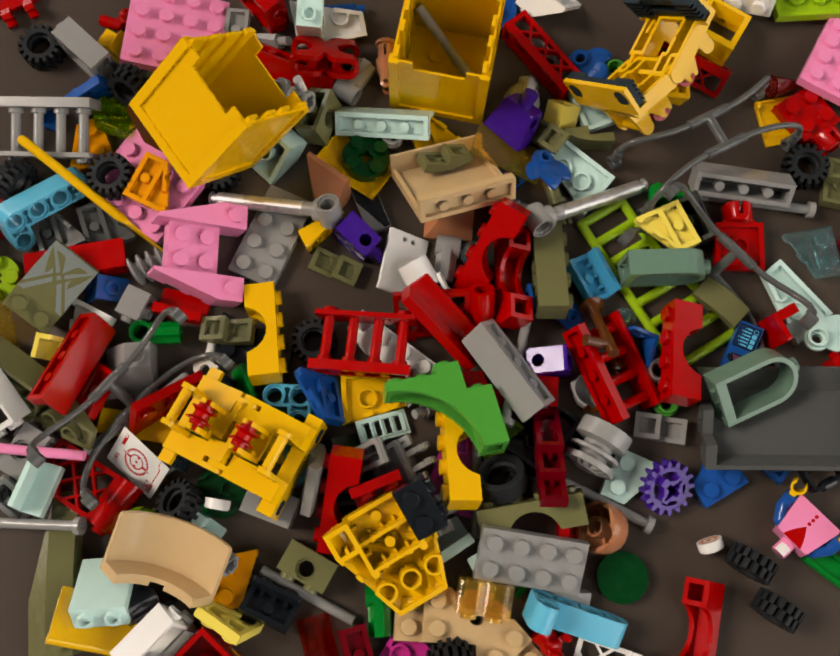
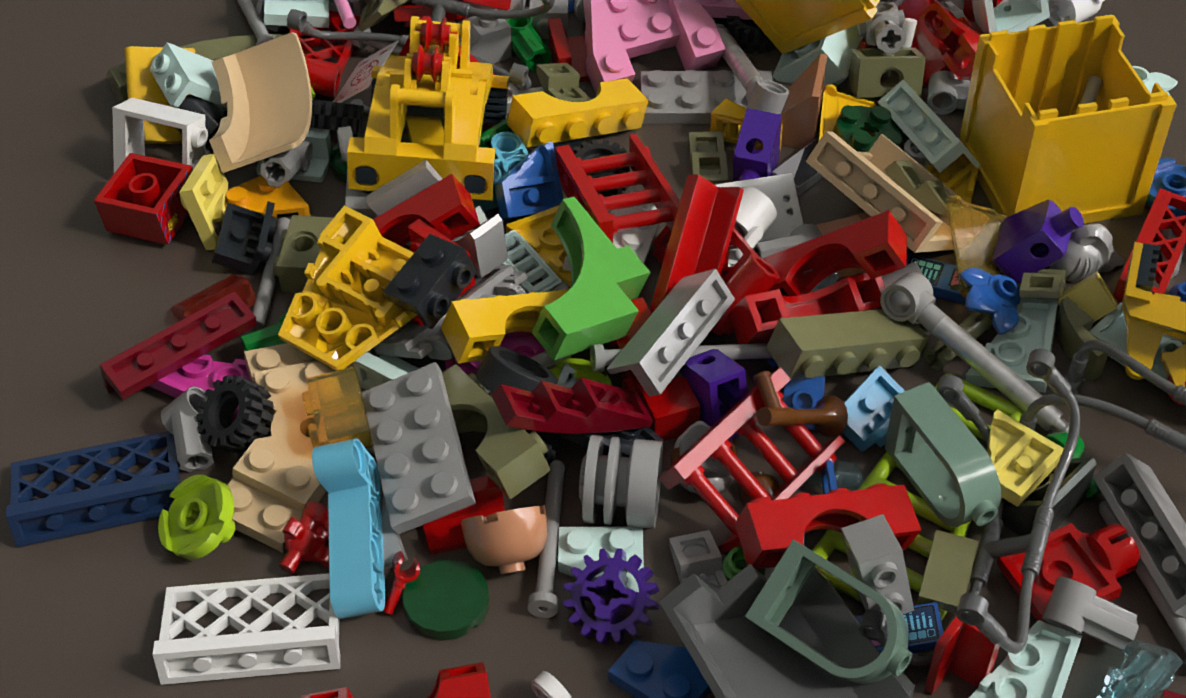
camera: 70 degrees right, 30 degrees down
(602, 596) = (400, 580): none -> red hand
(725, 342) = (878, 562): none -> light grey brick
(773, 251) = (1079, 610): none -> light grey piece

